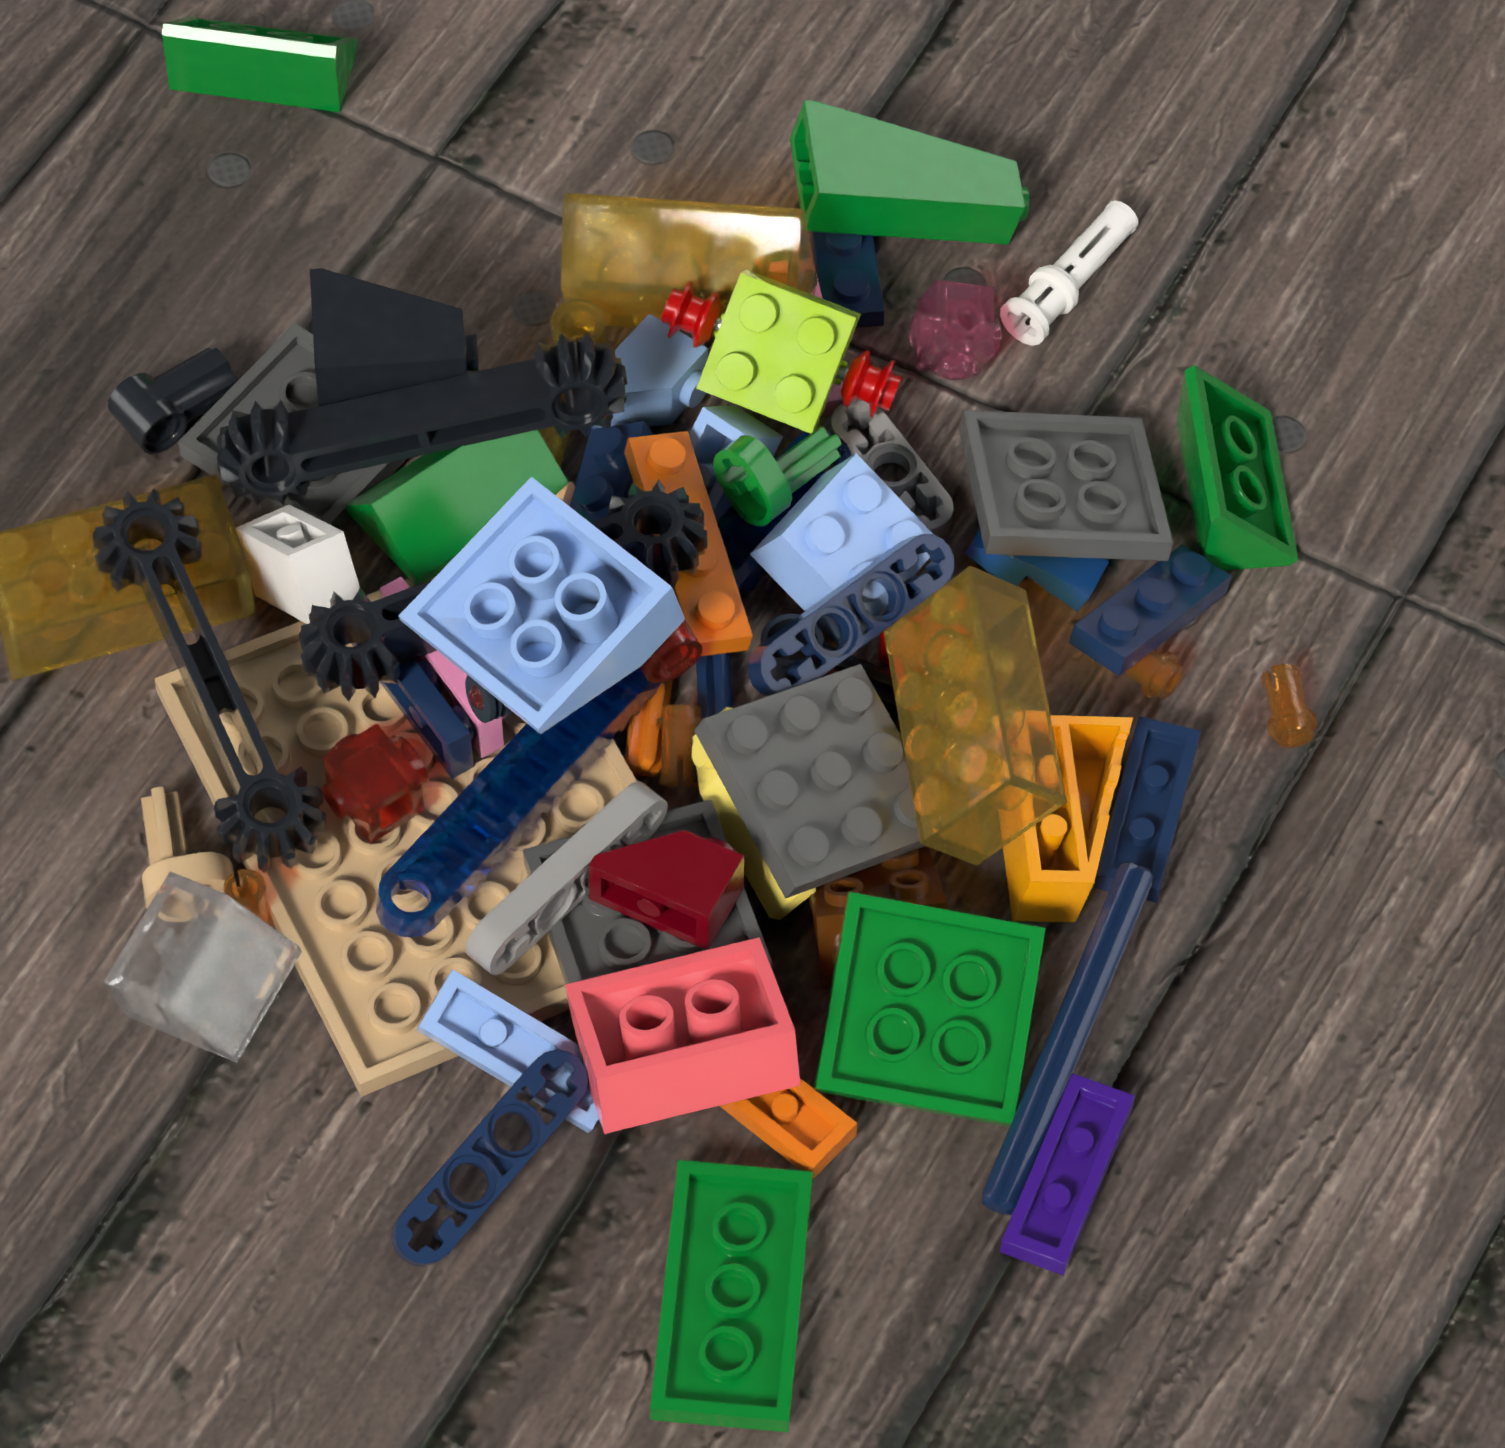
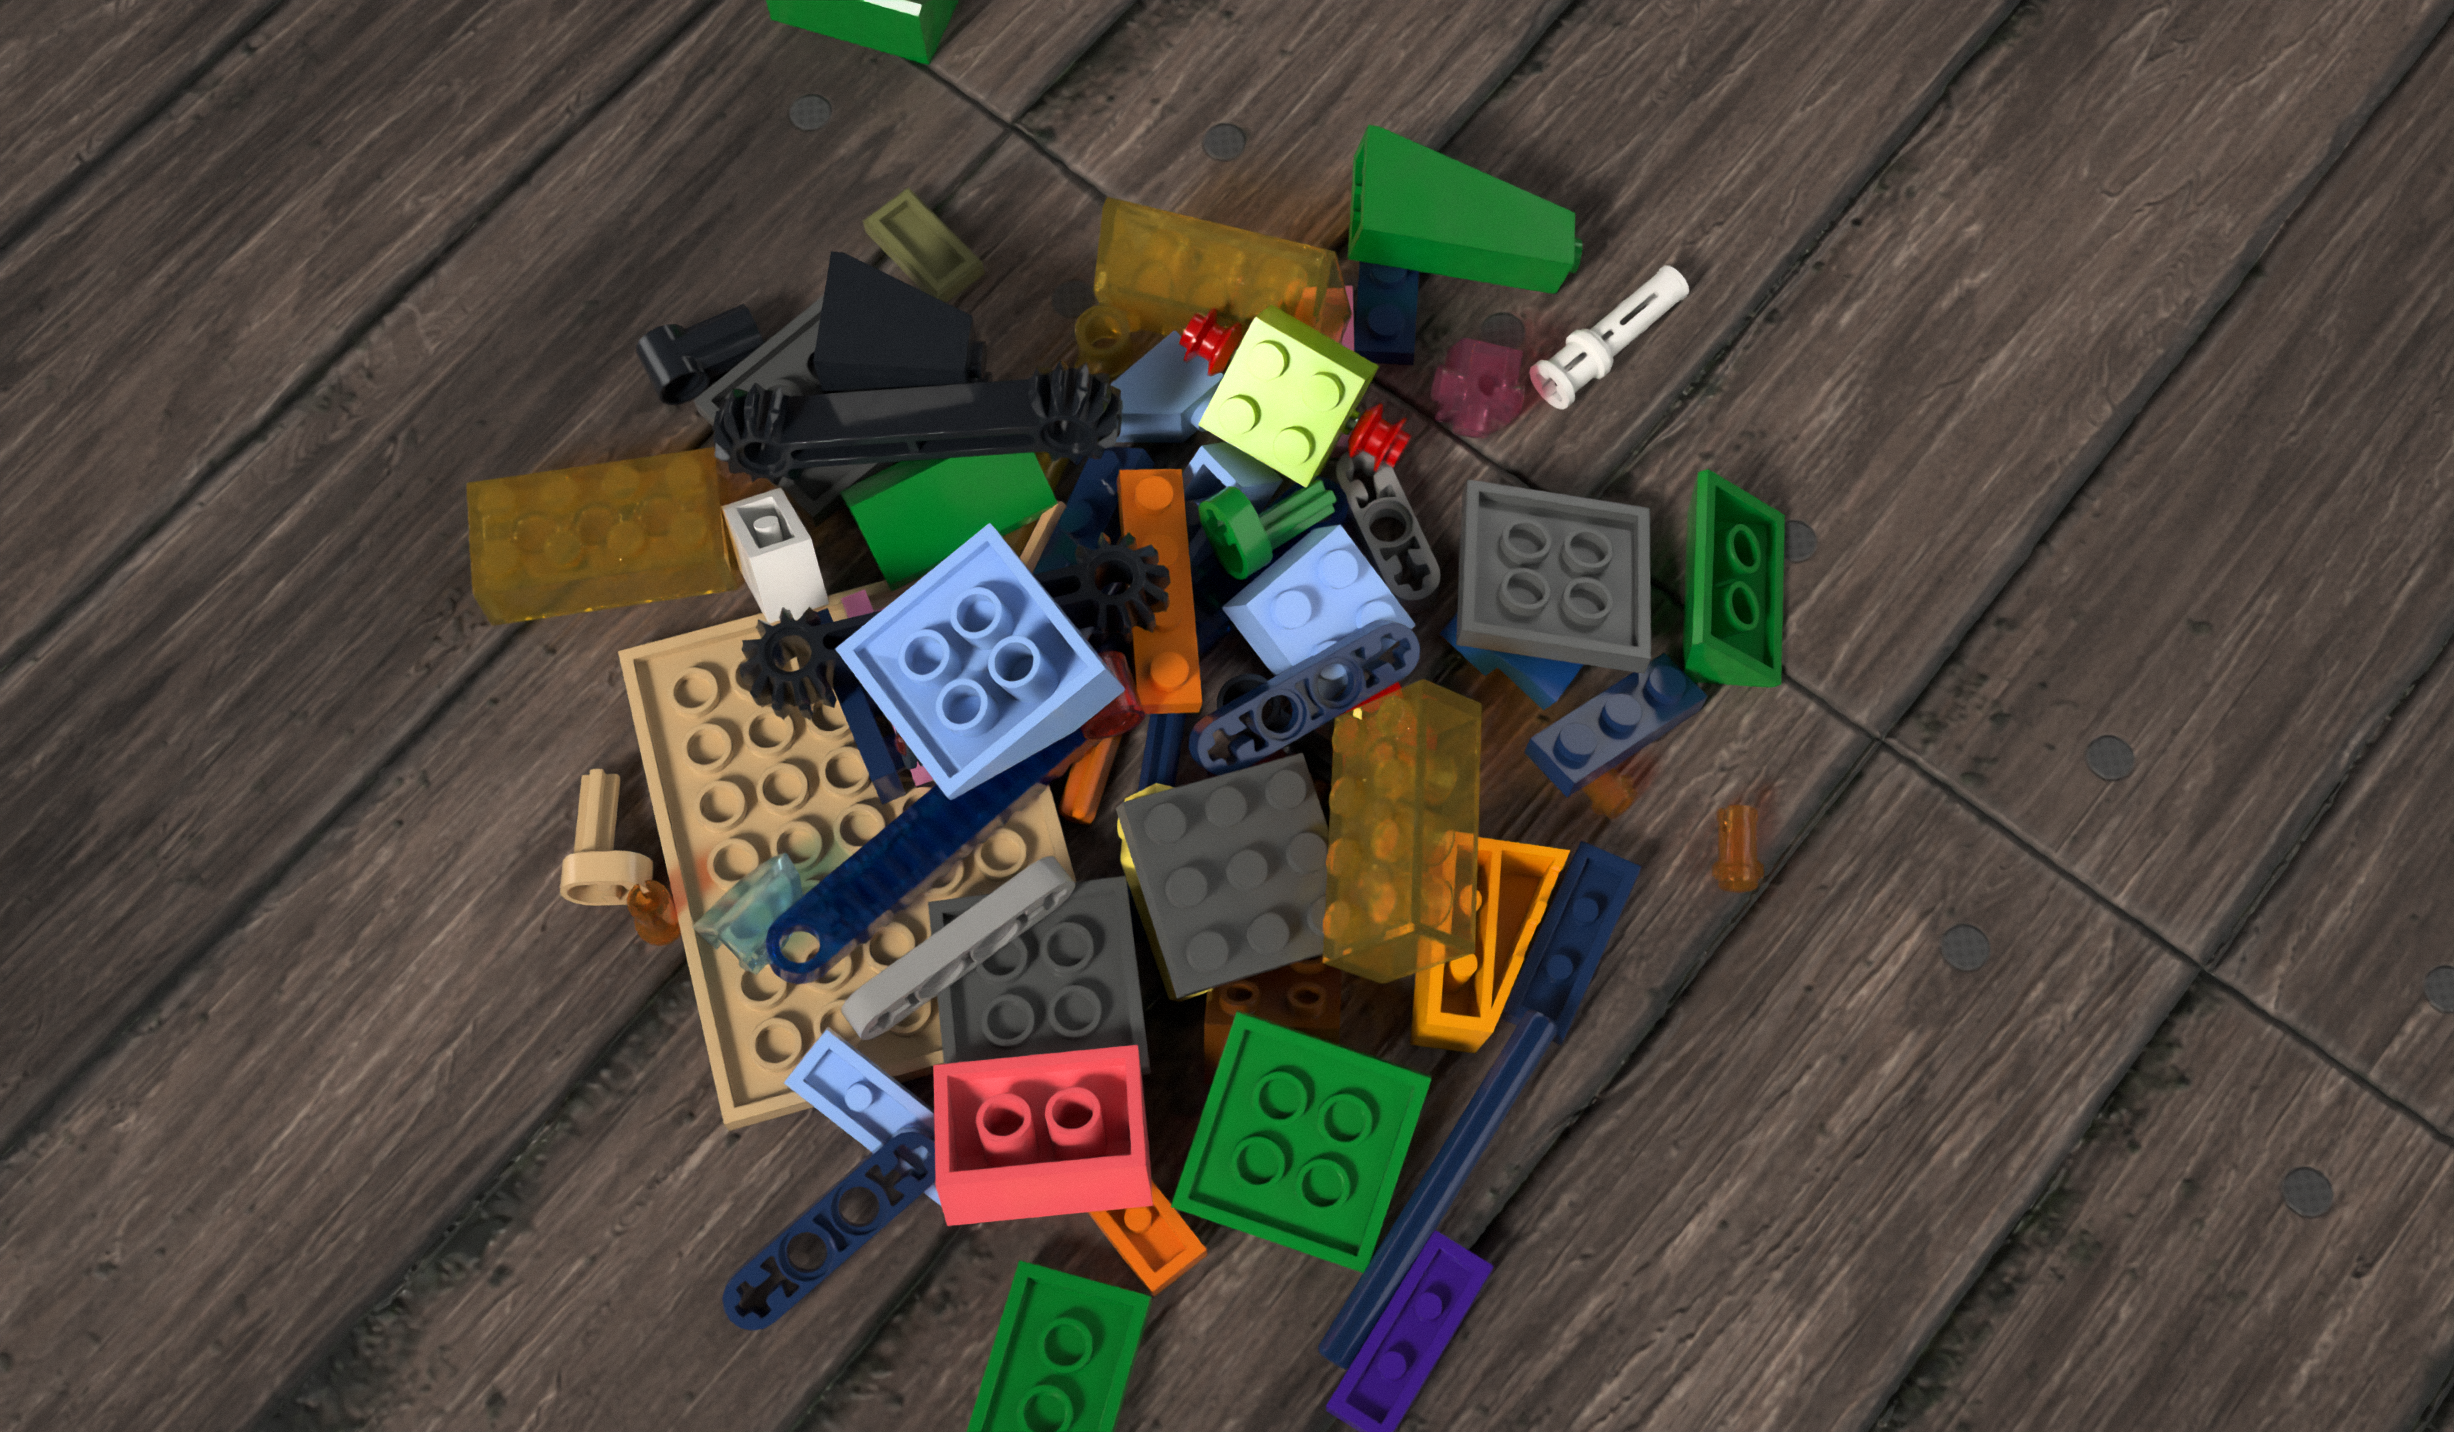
camera: 15 degrees right, 10 degrees up
(201, 967) = (592, 977): clear slope -> none
(209, 680) = (654, 673): black arm -> none
(348, 887) = (749, 909): none -> clear light blue brick
(365, 259) = (923, 246): none -> olive tile
(374, 781) = (799, 802): clear red brick -> none
(671, 884) = (1064, 972): dark red slope -> none
(677, 732) = (1116, 783): clear orange pin -> none

